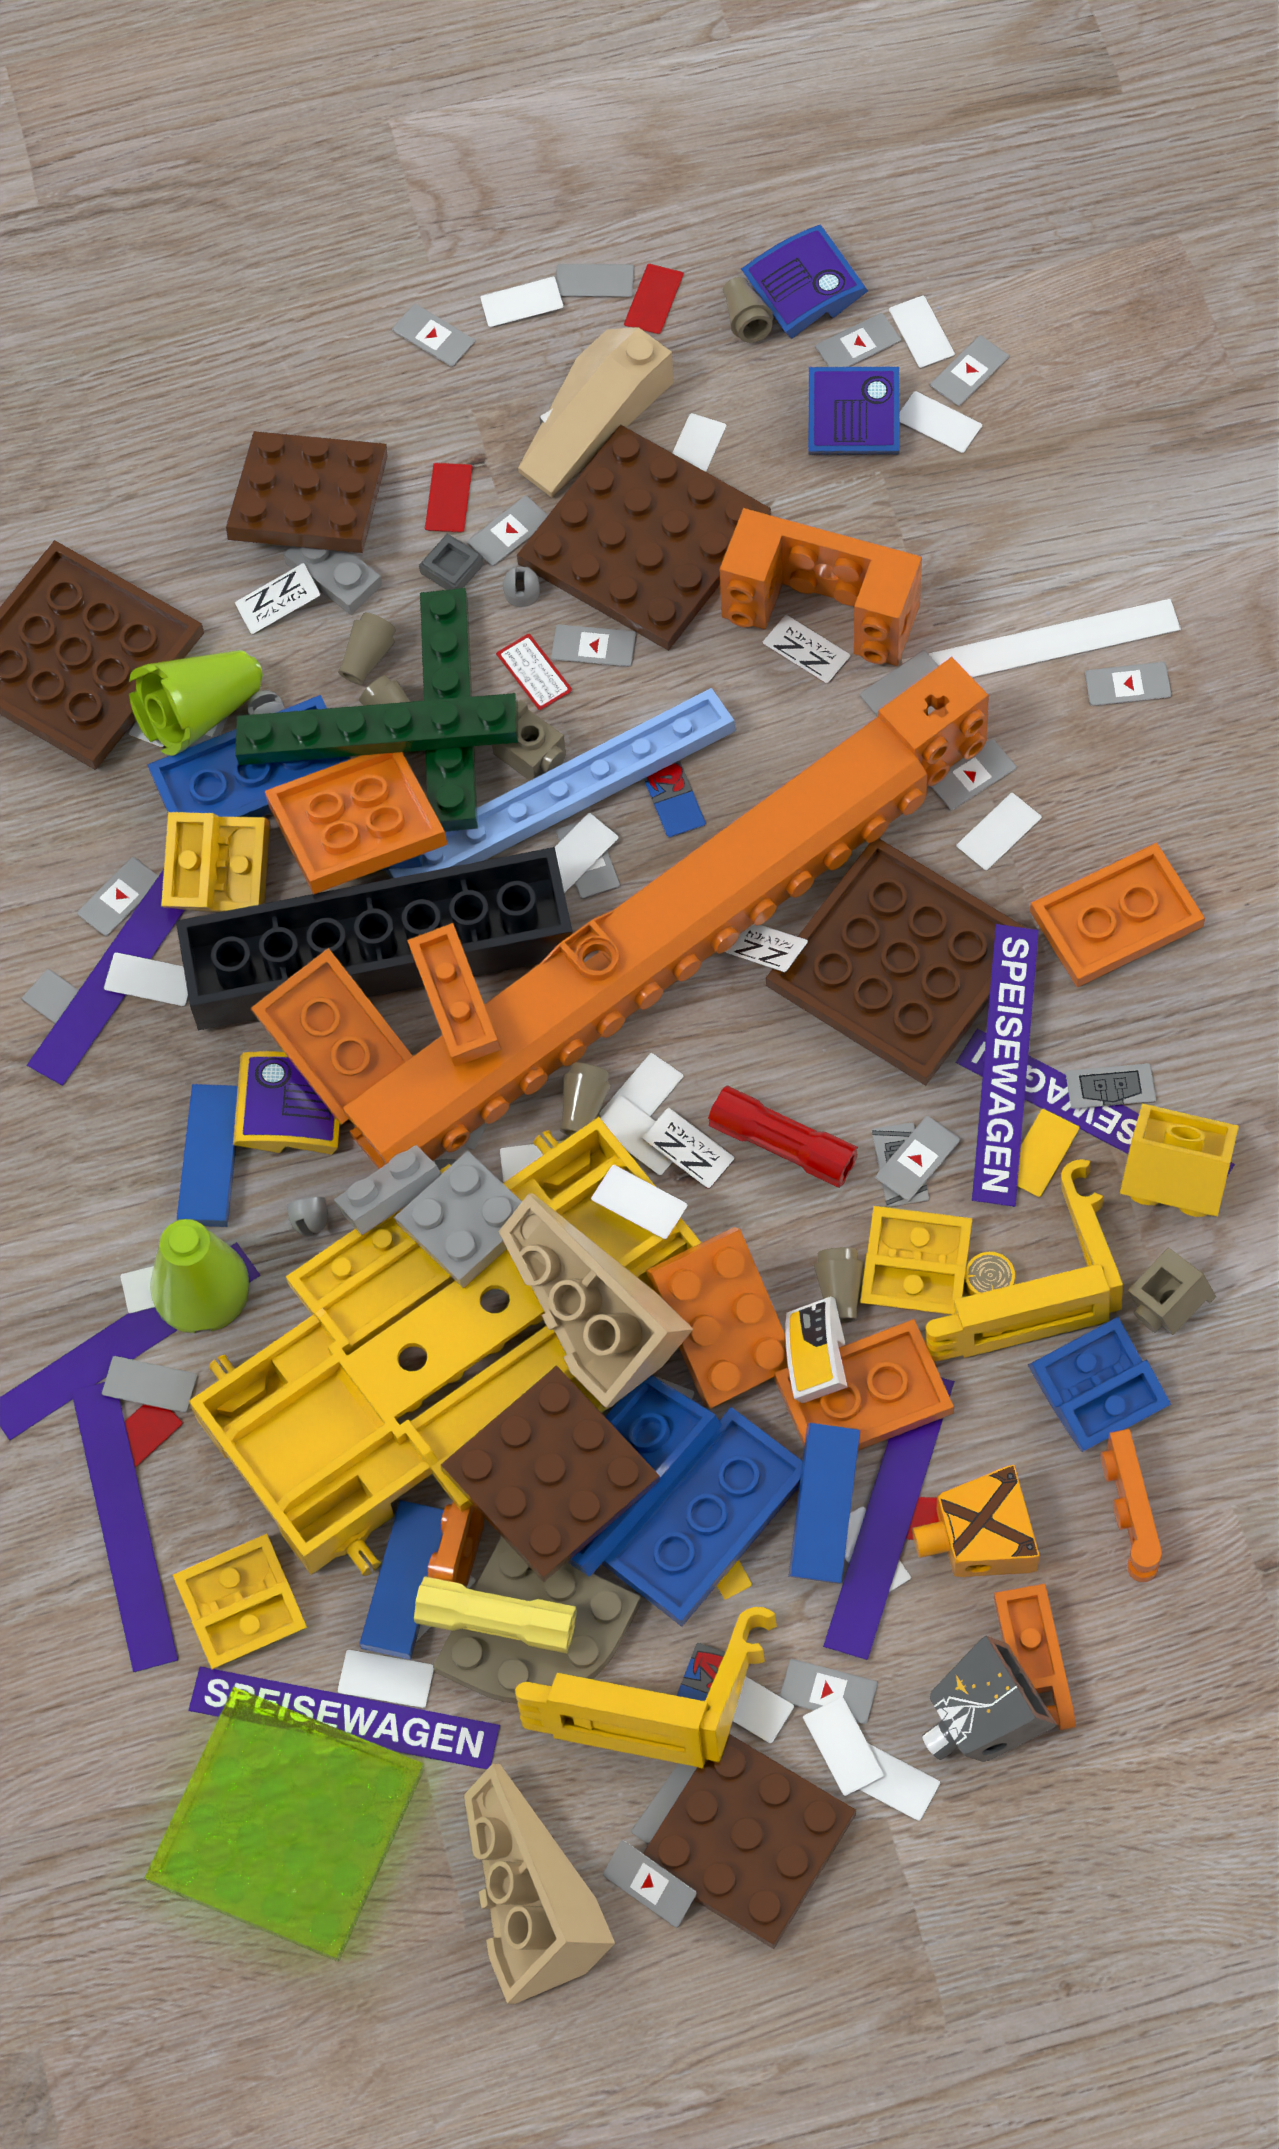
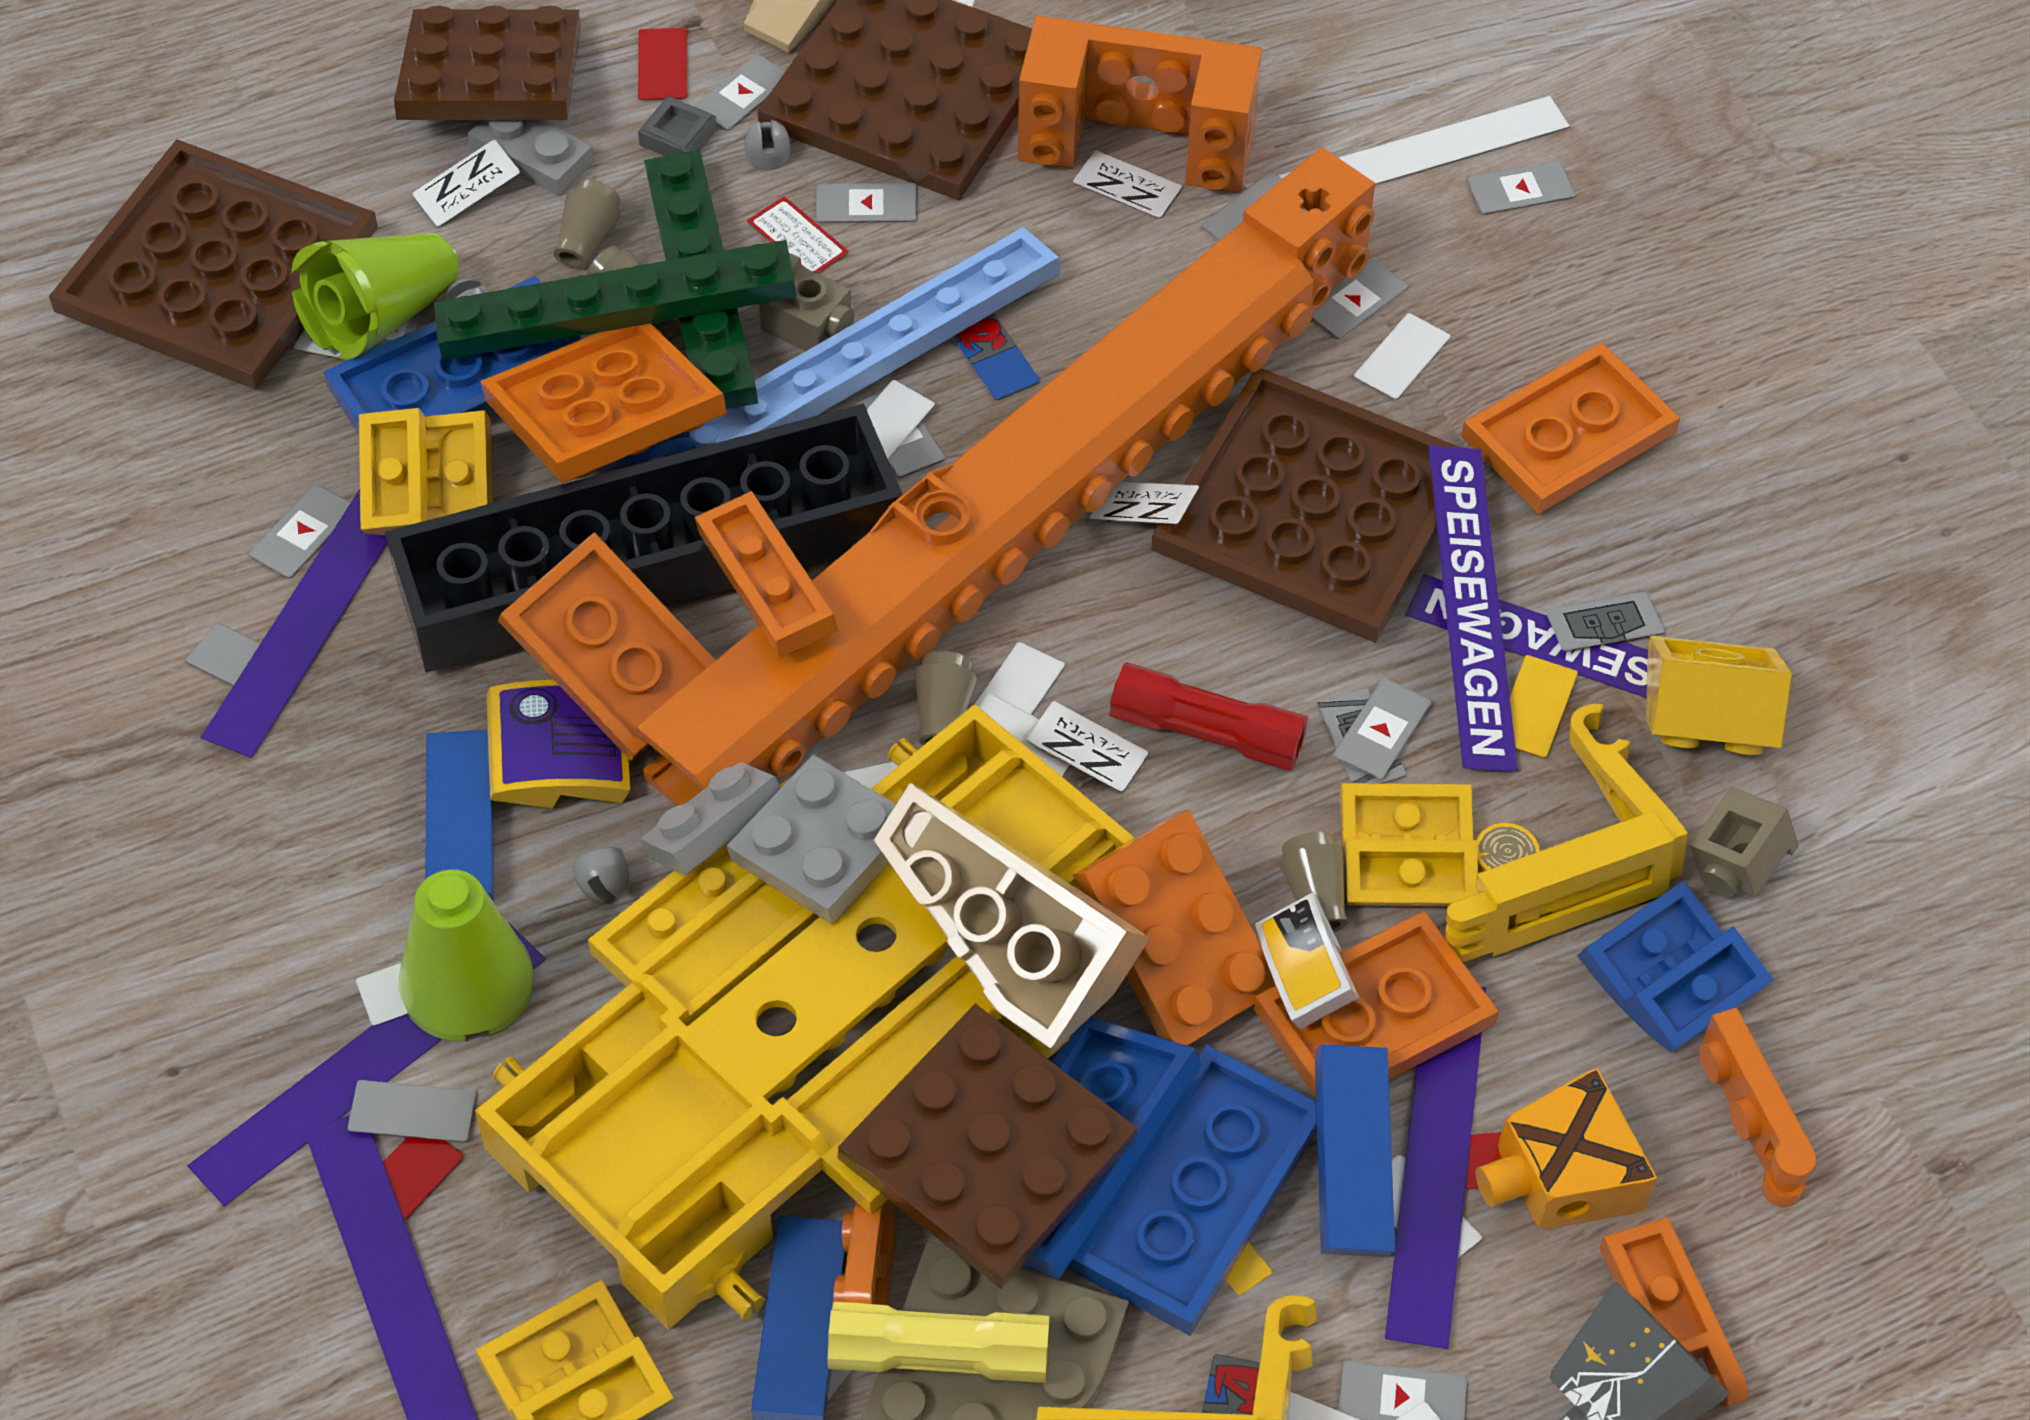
camera: 15 degrees left, 10 degrees down
(147, 979) = (352, 621): white sticker -> none
(639, 1201) = (1048, 795): white sticker -> none

